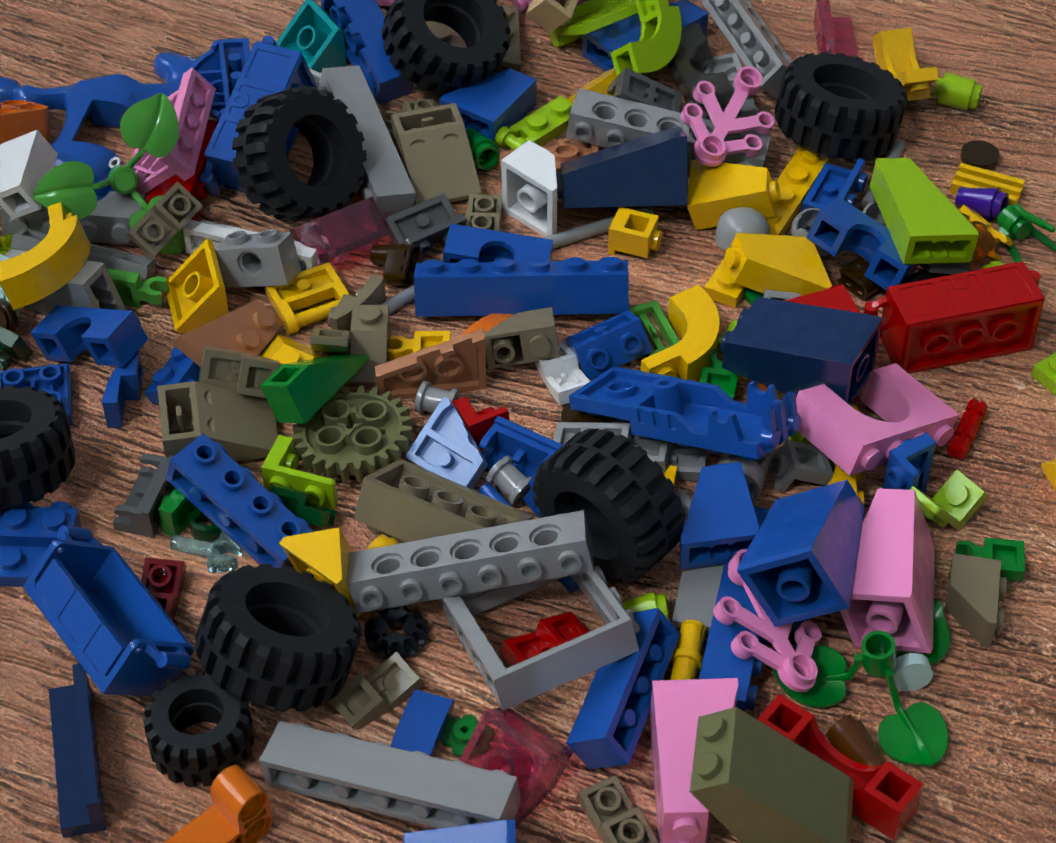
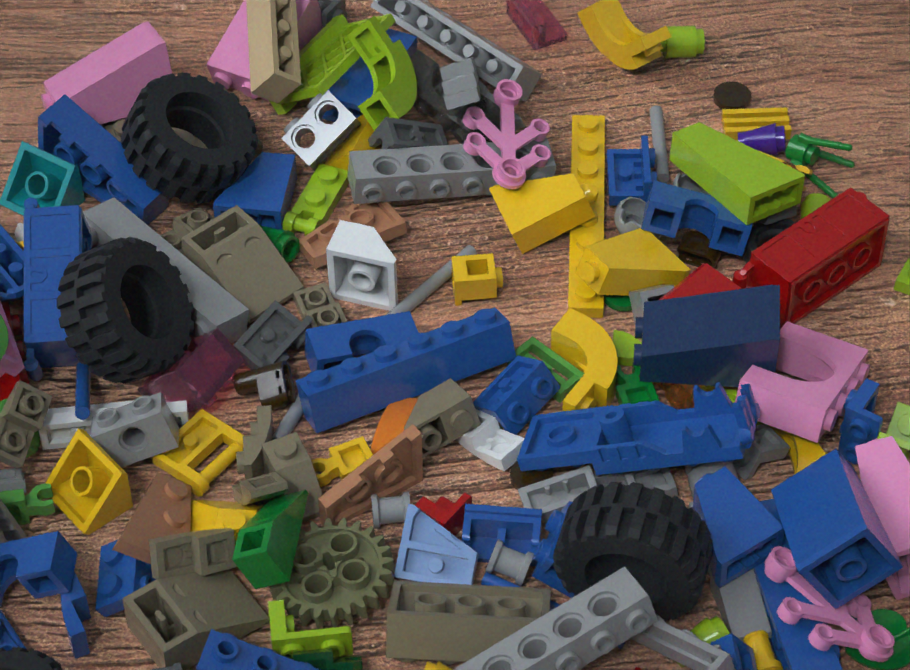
camera: 25 degrees left, 0 degrees up
(234, 216) = (82, 391): none -> blue bar
(573, 73) = (327, 136): none -> brick
(628, 174) = (448, 218): dark blue slope -> none
(711, 57) = (460, 83): none -> light grey slope
(739, 221) = (571, 238): light grey hair -> none
(840, 106) = (596, 90): black tyre -> none
(967, 429) = (875, 357): red axle -> none

